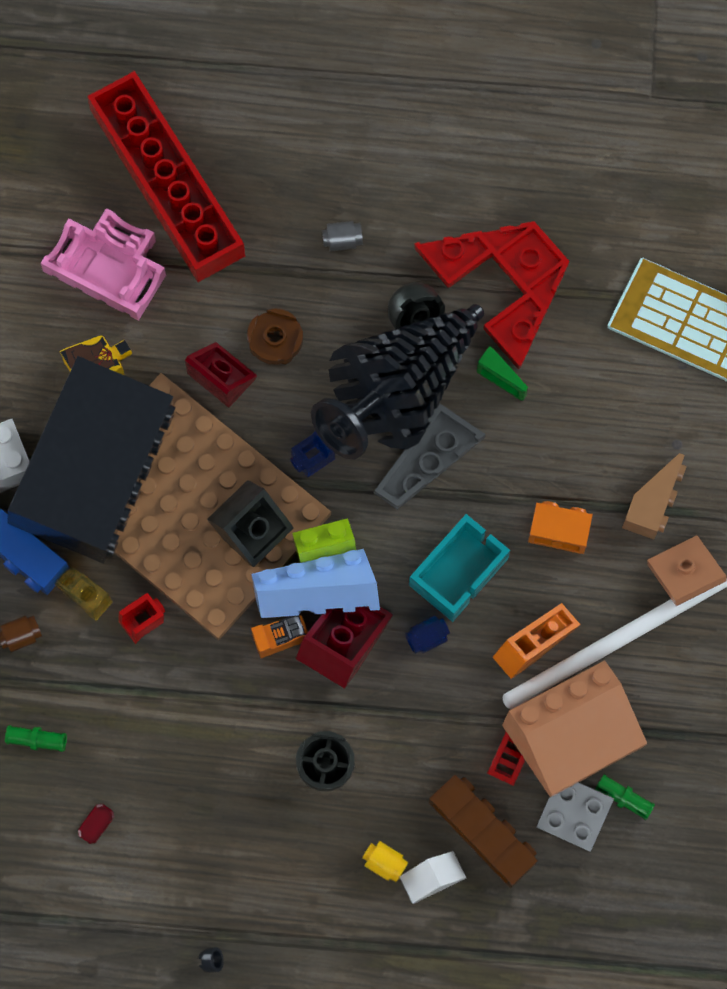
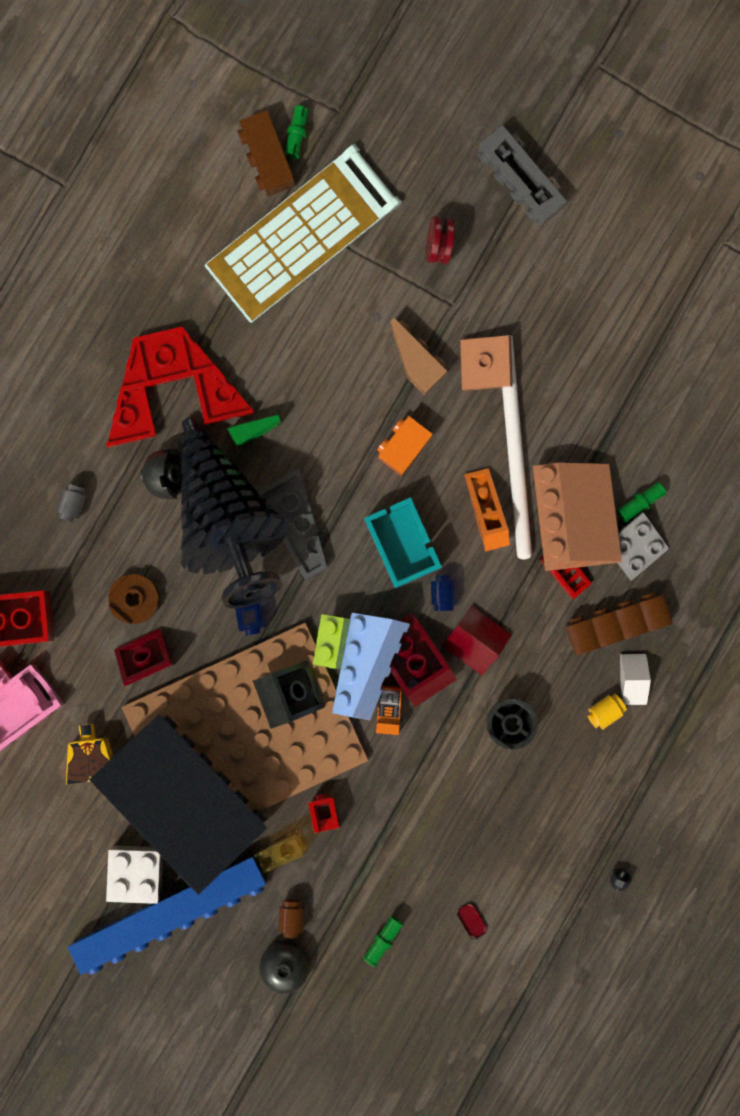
camera: 65 degrees left, 15 degrees up
(395, 692) = (477, 640): none -> dark red slope

